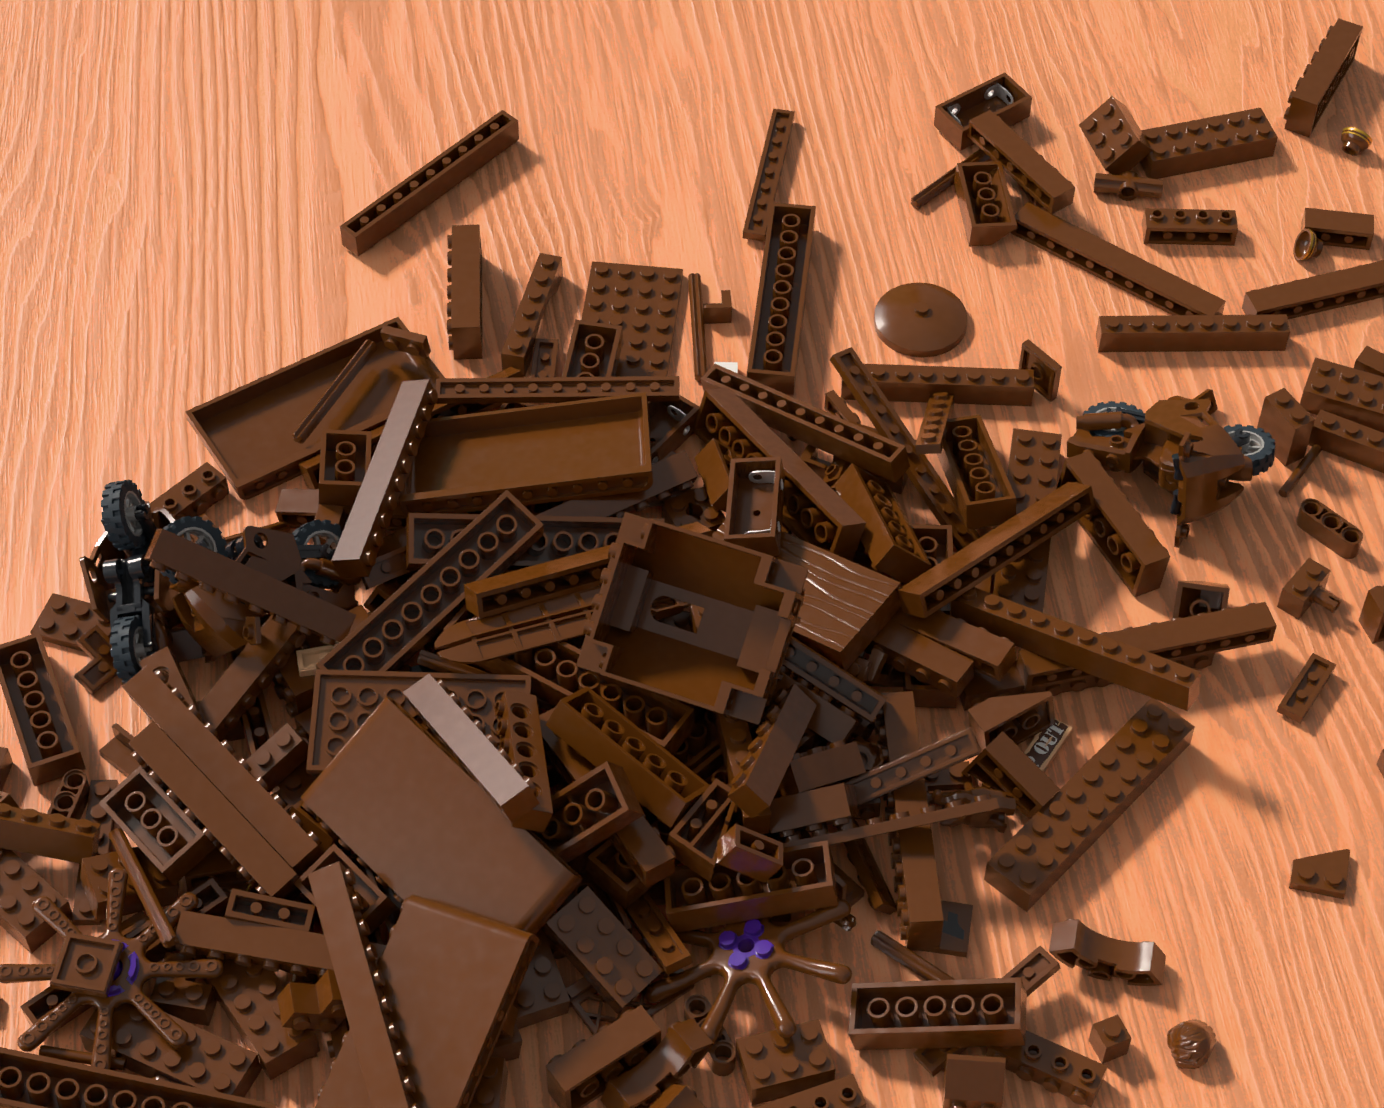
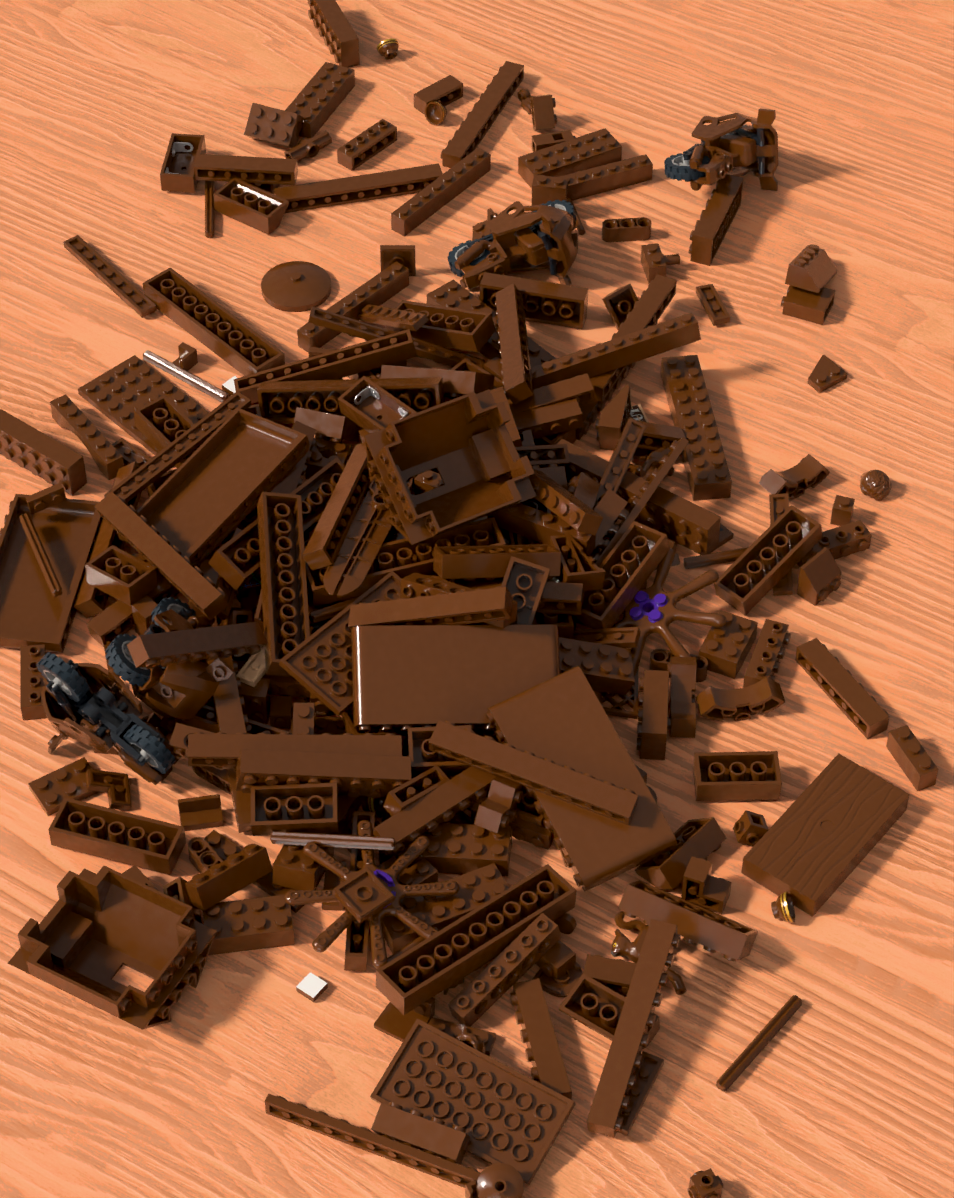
camera: 50 degrees left, 5 degrees down
(750, 853) = (615, 551): reddish brown brick -> none

